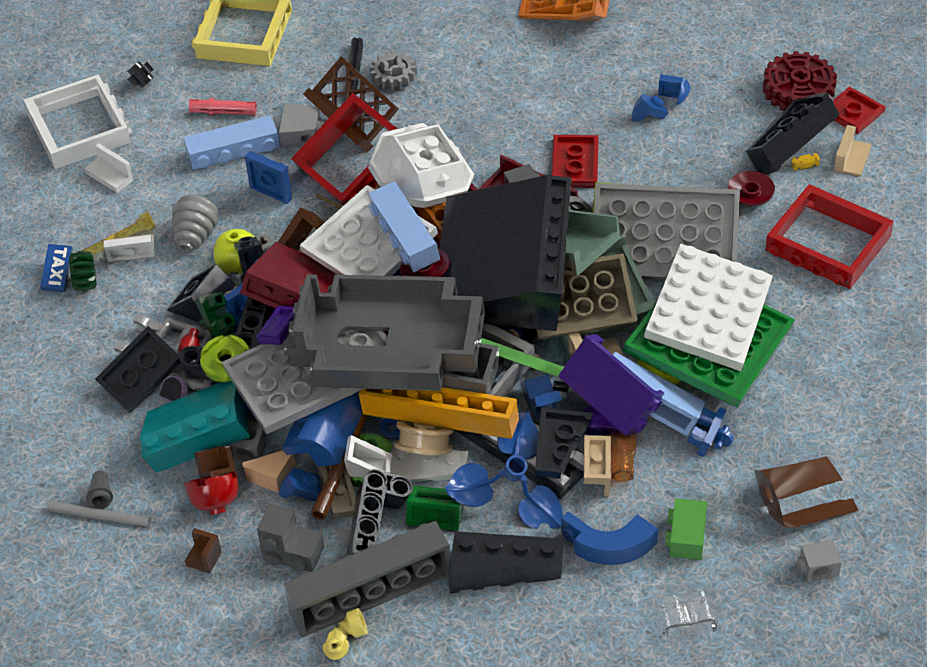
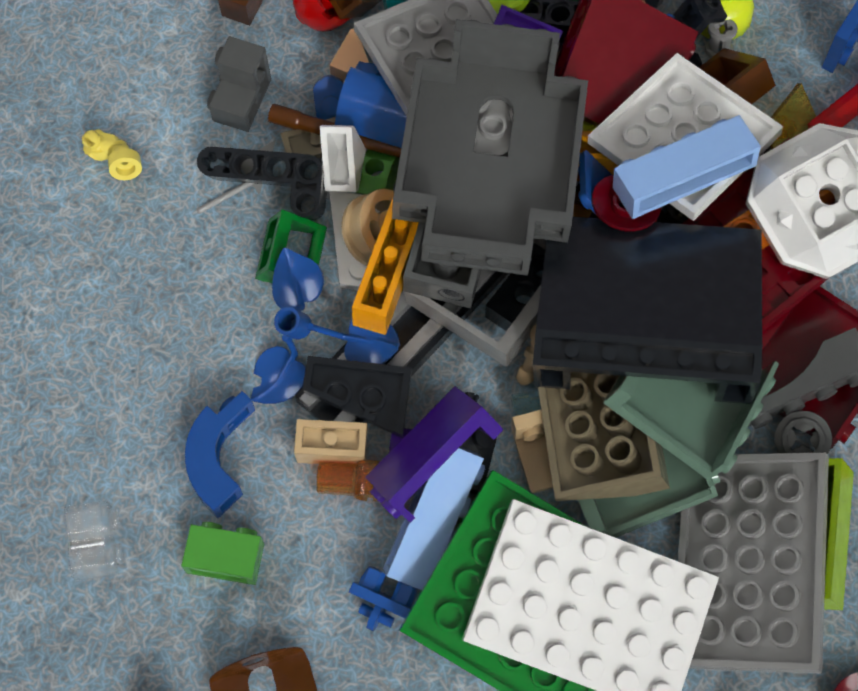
camera: 90 degrees right, 20 degrees up
(368, 578) = (174, 169): dark grey brick -> none
(501, 559) = (194, 320): black wedge -> none
(526, 359) = (484, 336): bright green sticker -> none
(540, 394) = (464, 370): blue brick -> none

